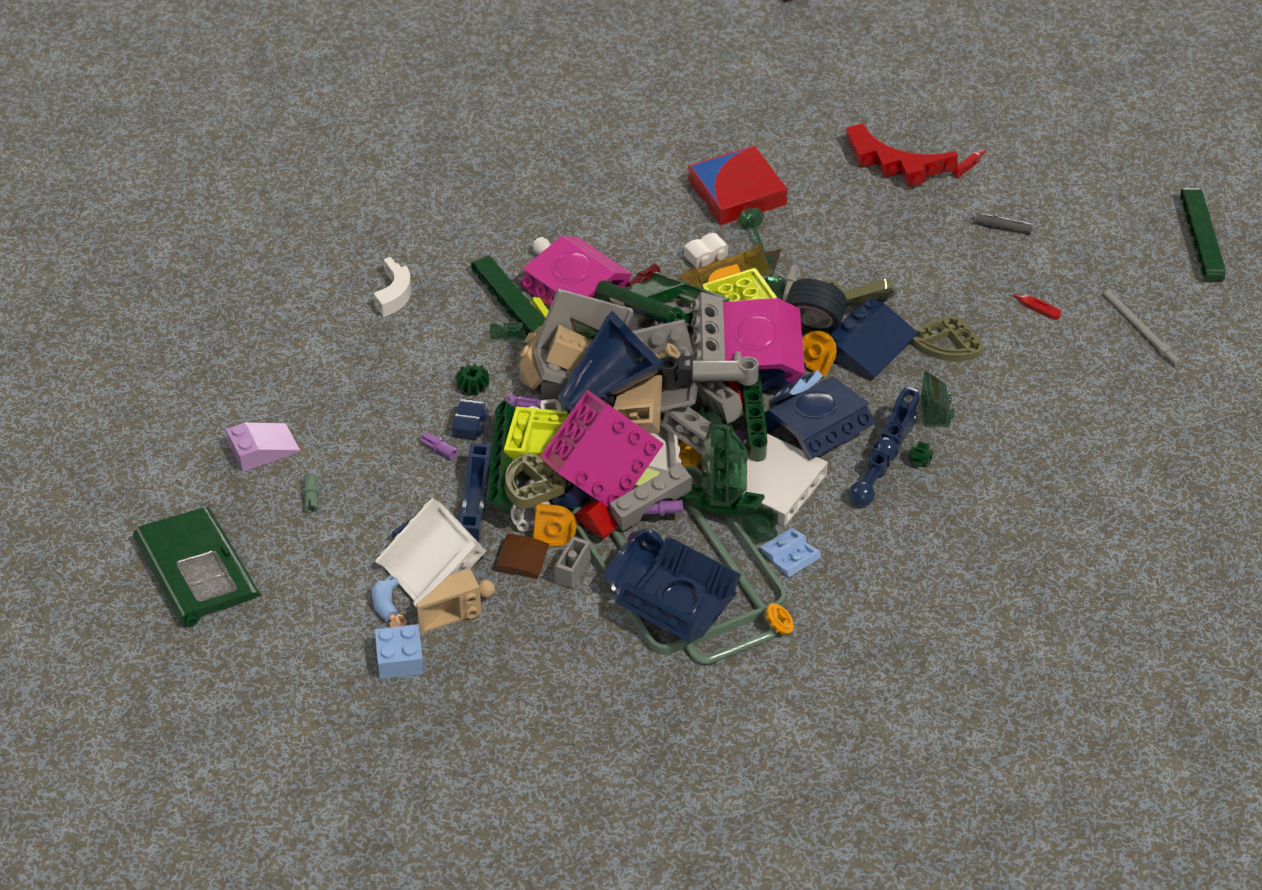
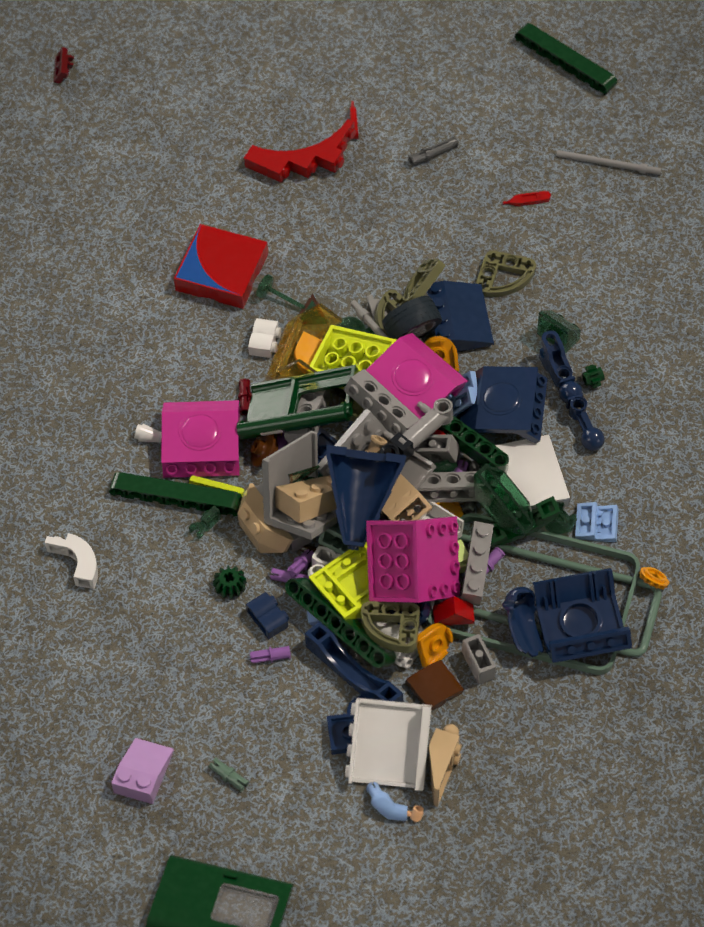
camera: 45 degrees left, 10 degrees up
(399, 651) = (449, 833): light blue brick -> none

